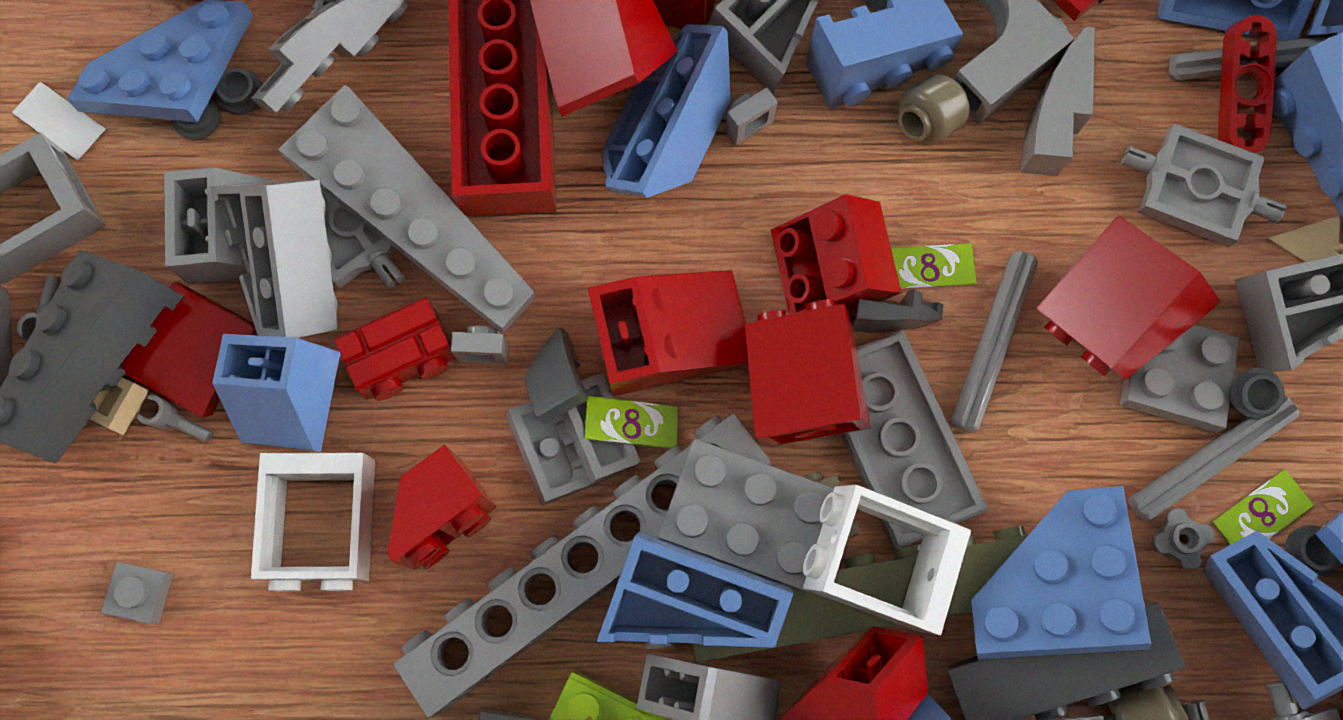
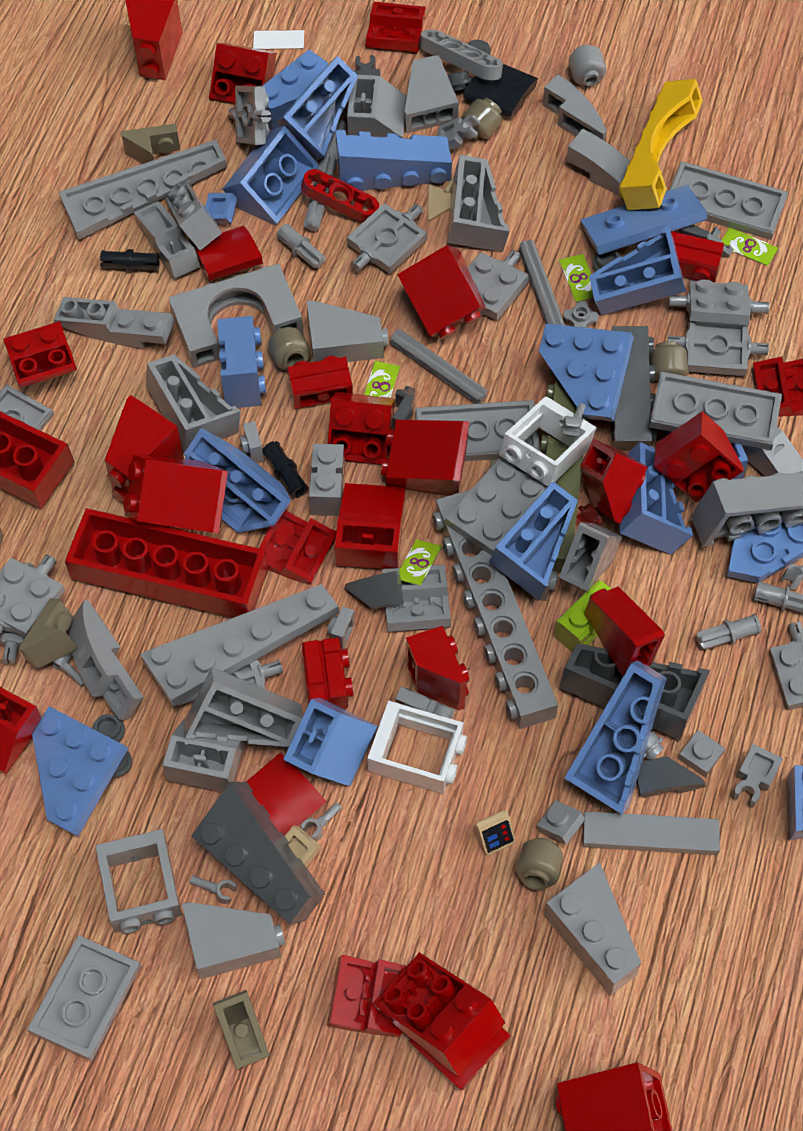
camera: 70 degrees left, 15 degrees down
(59, 120) = (74, 855): white sticker -> none
(137, 593) = (425, 868): light grey plate -> none
(212, 678) = (495, 833): none -> slope
(381, 504) = (423, 703): none -> light grey plate
(600, 235) = (297, 547): none -> red slope
(701, 240) = (327, 479): none -> light grey piece
(725, 177) = (285, 469): none -> black pin
(797, 667) = (589, 515): none -> clear red plate
(893, 172) = (318, 381): none -> red brick
(921, 595) = (572, 425): none -> light grey hand
(991, 178) = (345, 333): none -> light grey slope
(1061, 109) = (312, 282): light grey slope -> none
(1130, 64) = (300, 246): none -> light grey axle
(1256, 393) = (515, 253): dark grey plate -> none

